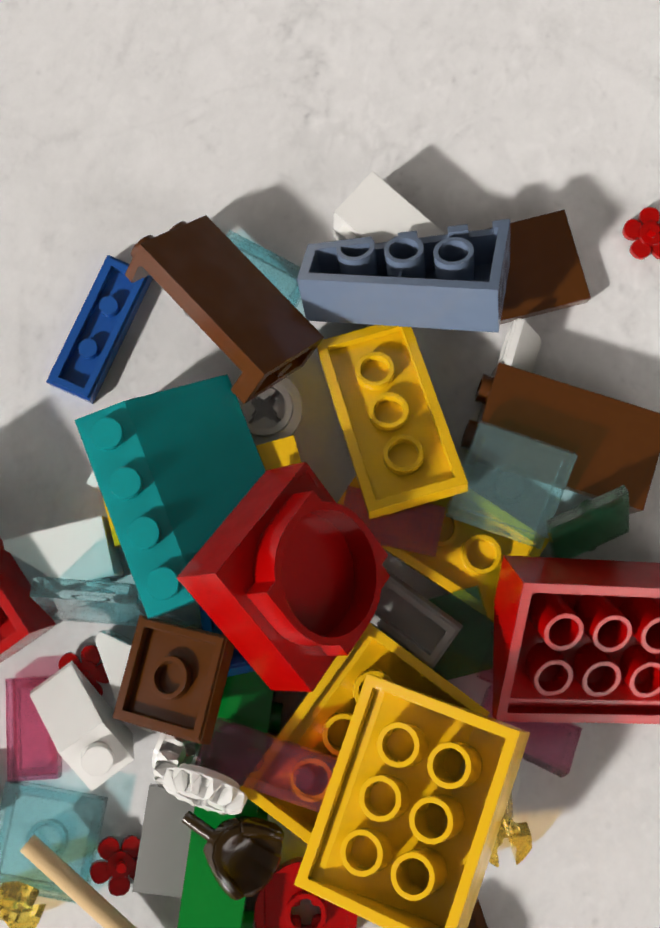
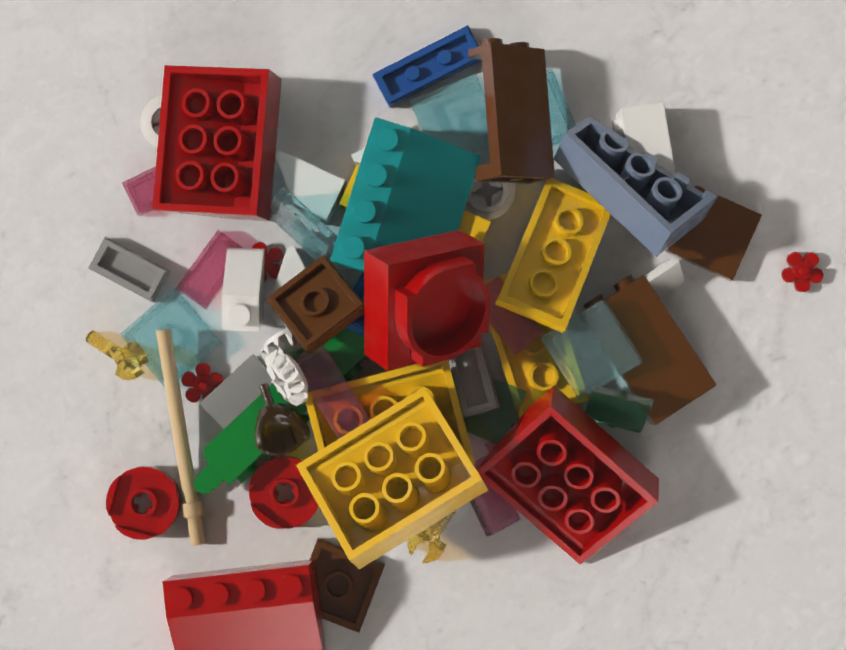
camera: 40 degrees right, 5 degrees up
(167, 353) = (455, 114): none -> clear light blue tile

